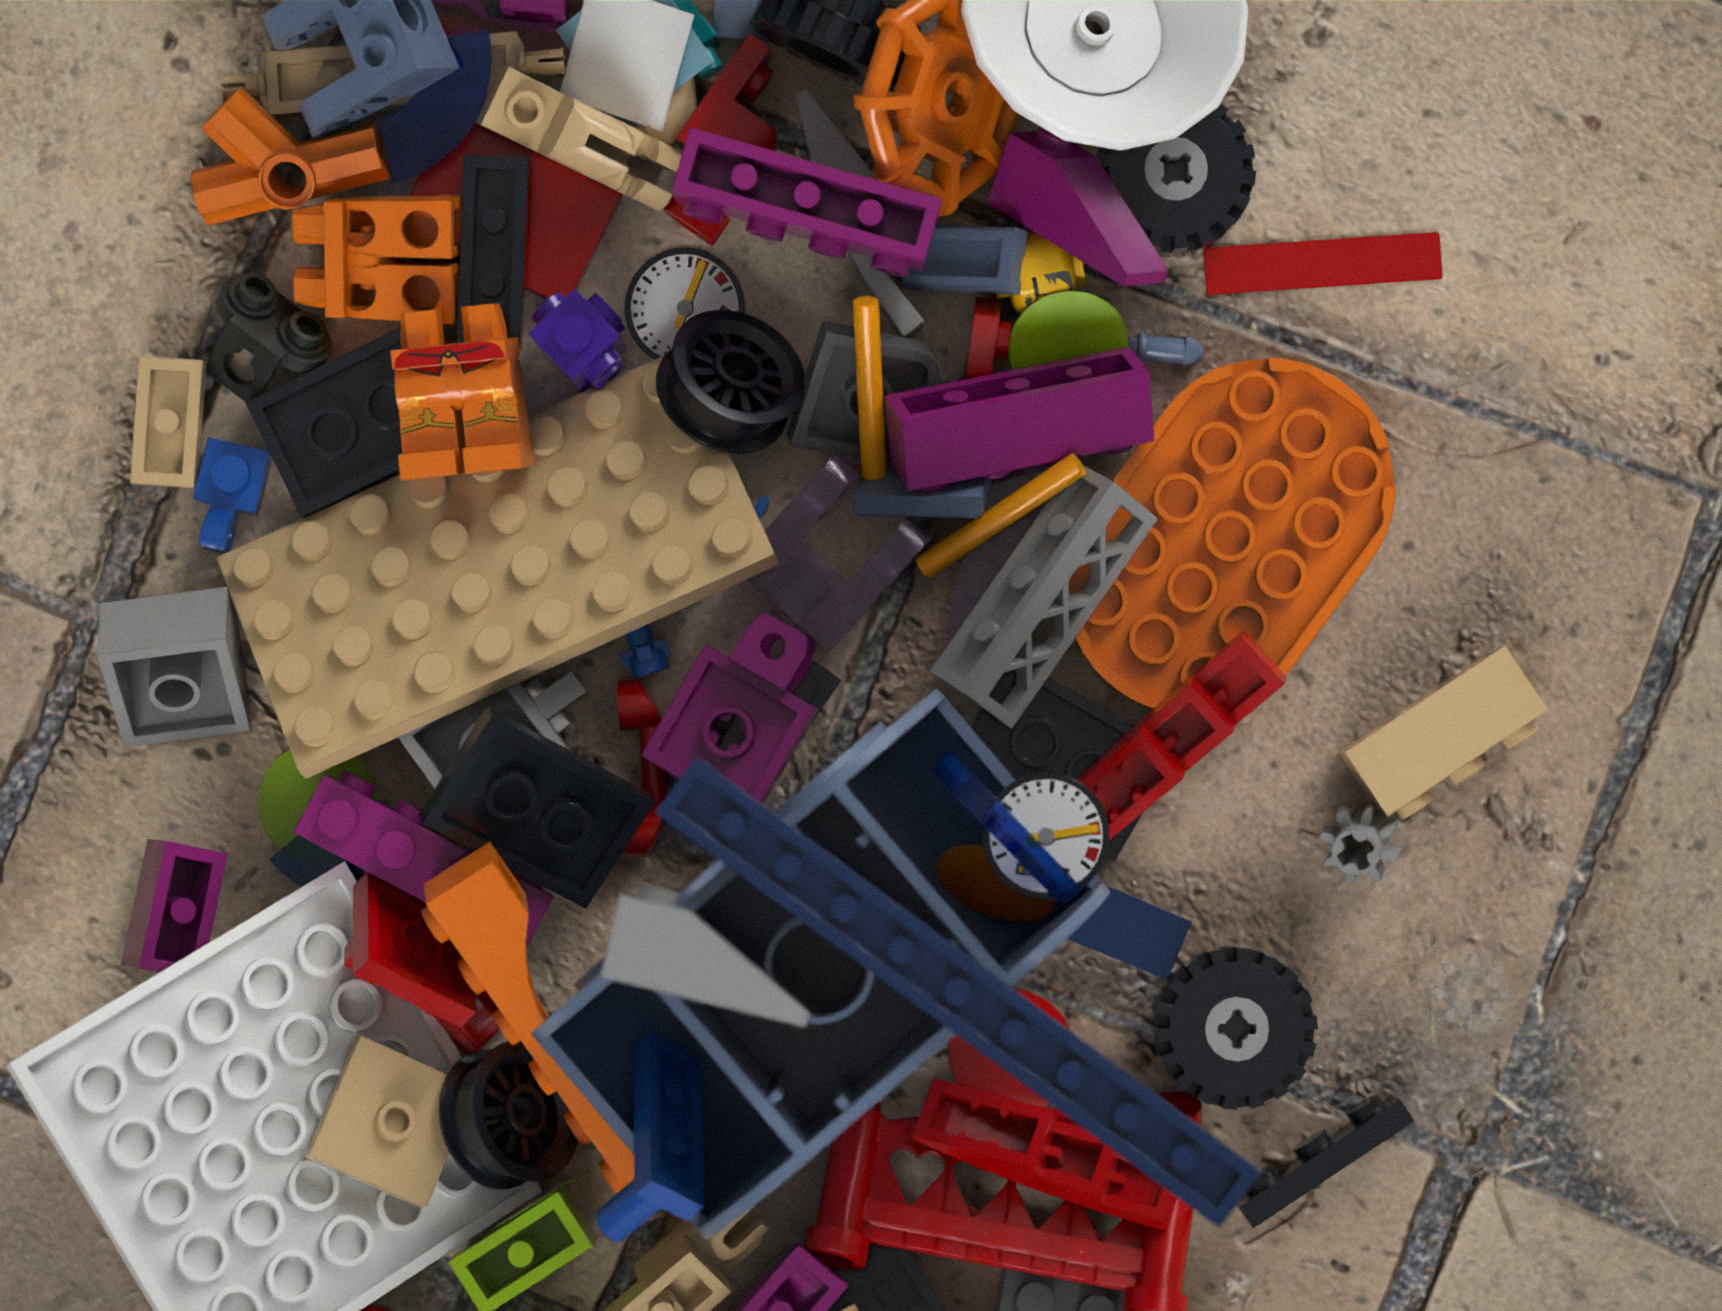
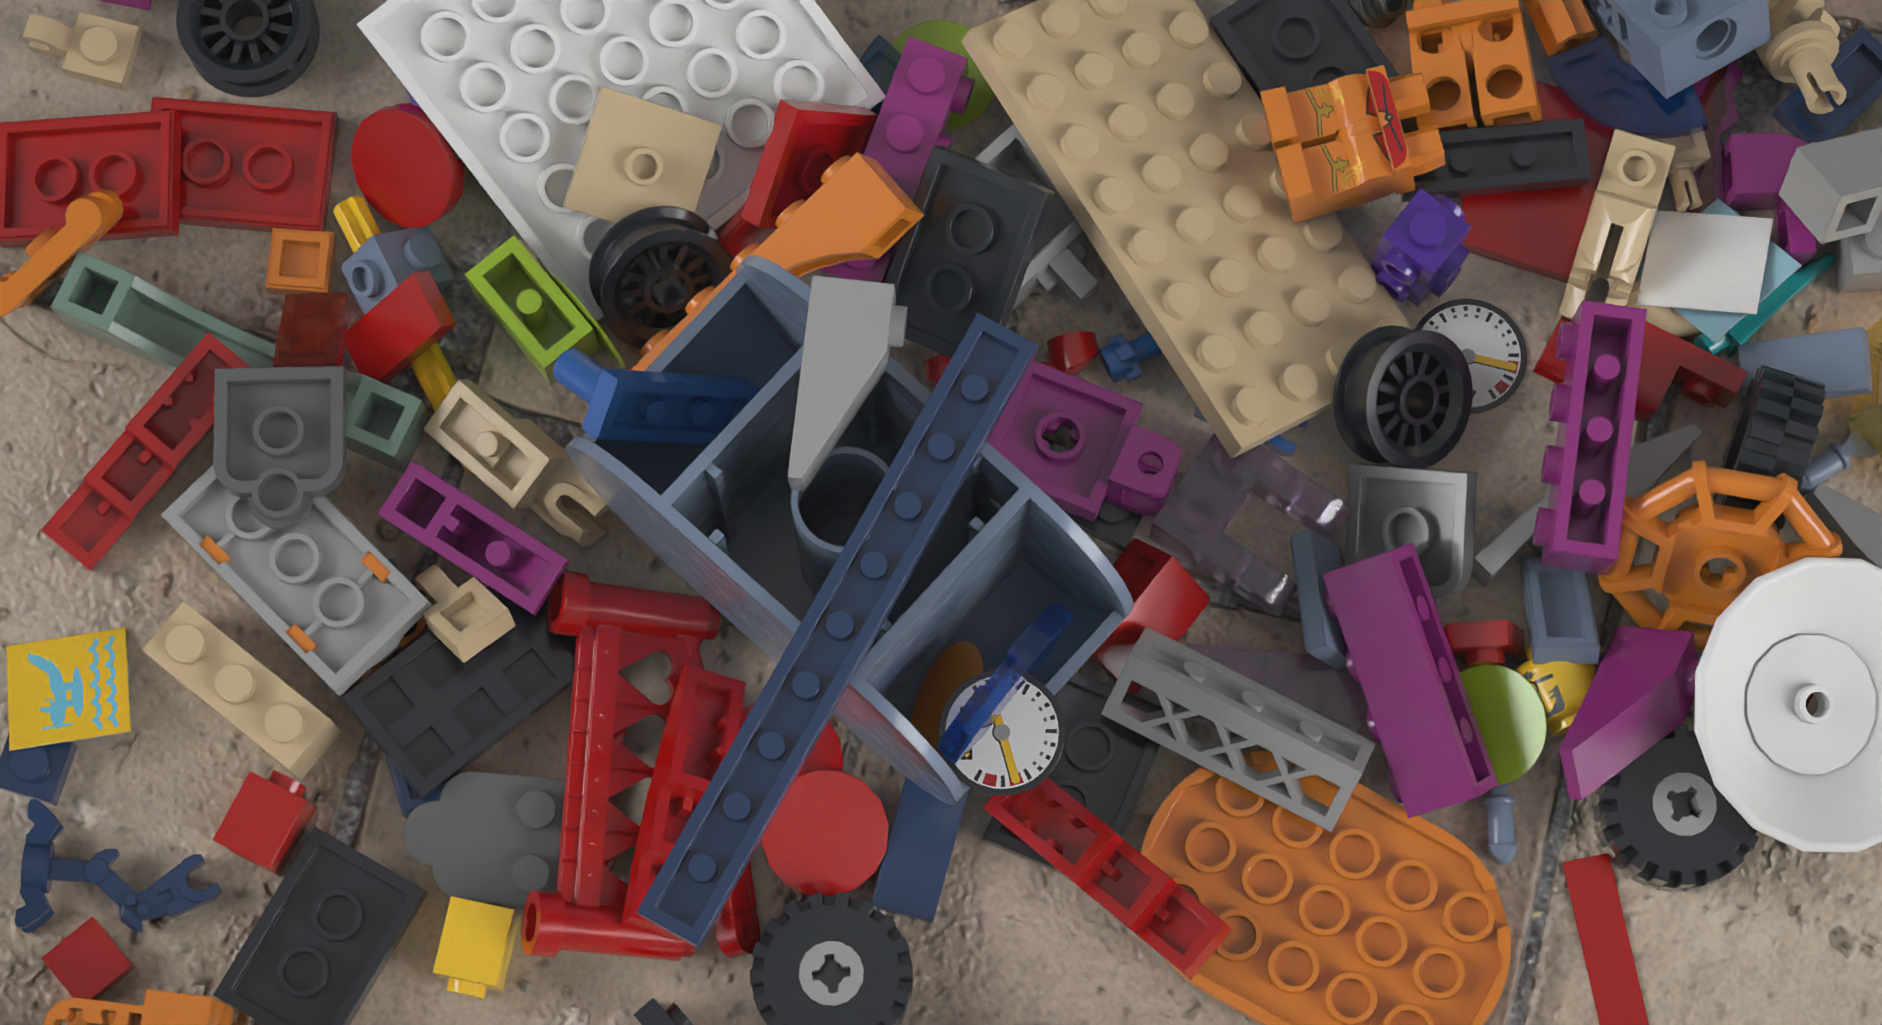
camera: 85 degrees right, 10 degrees down
(869, 387) = (1418, 527): light orange bar -> none
(893, 667) = (1162, 599): none -> red panel
(1000, 515) = (1311, 677): light orange bar -> none
(1100, 1004) = (827, 833): none -> red tile

